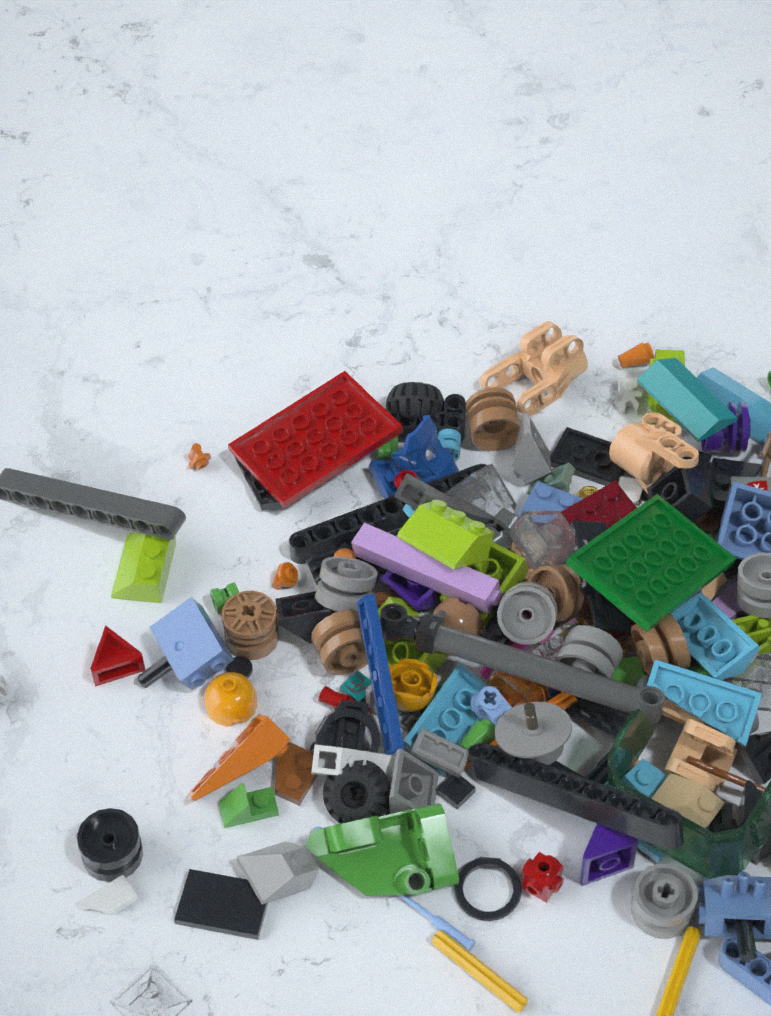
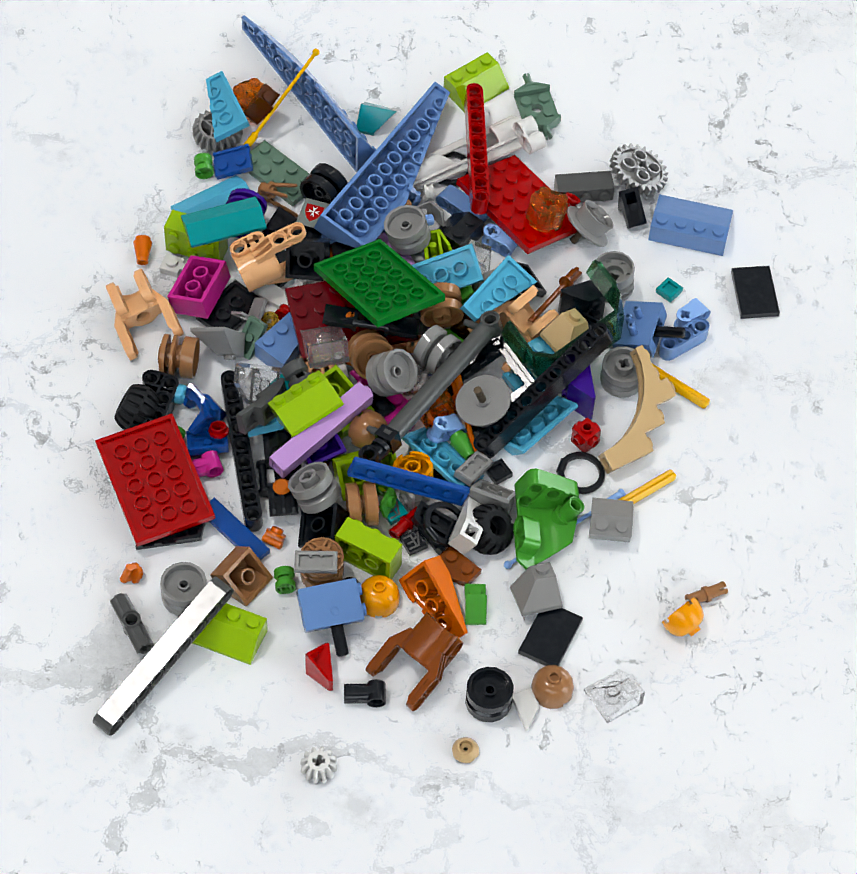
camera: 80 degrees left, 5 degrees up
(35, 849) = (462, 755): none -> tan plate
(91, 718) = (371, 693): none -> black piece
(134, 471) = (137, 632): none -> dark grey piece
(143, 756) = (429, 646): none -> dark orange piece
(145, 921) = (552, 686): none -> medium nougat cylinder
(190, 495) = (181, 586): none -> light grey wheel
(220, 555) = (243, 573): none -> medium nougat slope
(231, 604) = (316, 562): none -> light grey plate
(276, 544) = (235, 530): none -> blue tile
(282, 666) = (369, 549): none -> lime brick
(315, 716) = (413, 542): none -> black tile
(355, 670) = (388, 501): none -> bright green bracket
(358, 485) = (208, 465): none -> dark pink piece
(414, 934) = (611, 520): none -> light grey slope
(546, 820) = (543, 423): none -> medium azure slope
(590, 479) = (257, 309): none -> light grey bracket
(592, 943) = (647, 416): none -> tan arch
(596, 411) = (199, 286): none -> dark pink brick

